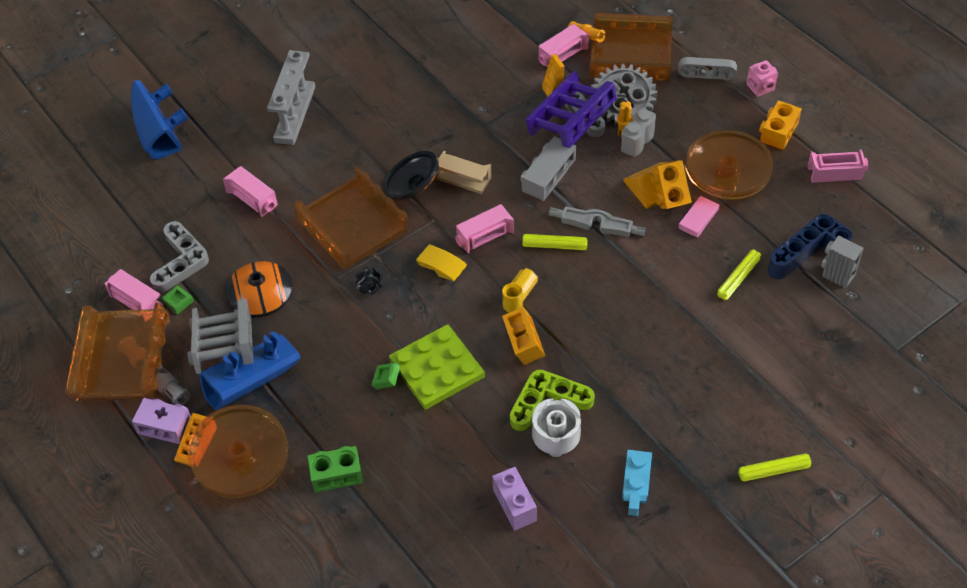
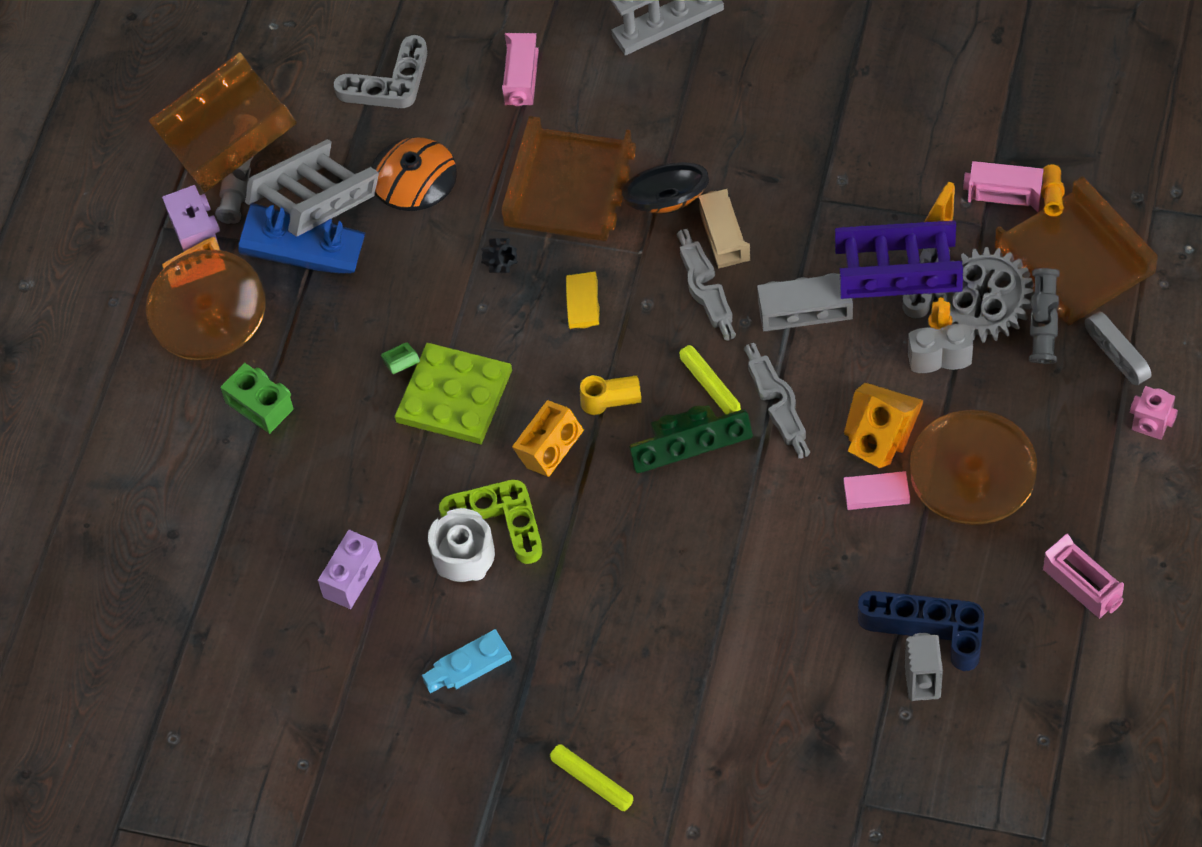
camera: 55 degrees right, 5 degrees up
(131, 291) = (307, 81): bright pink window -> none
(177, 299) = (338, 119): bright green tile -> none
(477, 200) = (710, 296): none -> light grey piece
(484, 228) = (662, 303): bright pink window -> none
(582, 272) = (688, 436): none -> dark green bracket
(663, 76) = (1044, 311): none -> dark grey piece
(739, 274) = (826, 582): neon yellow axle -> none
(780, 124) = (1097, 486): light orange brick -> none

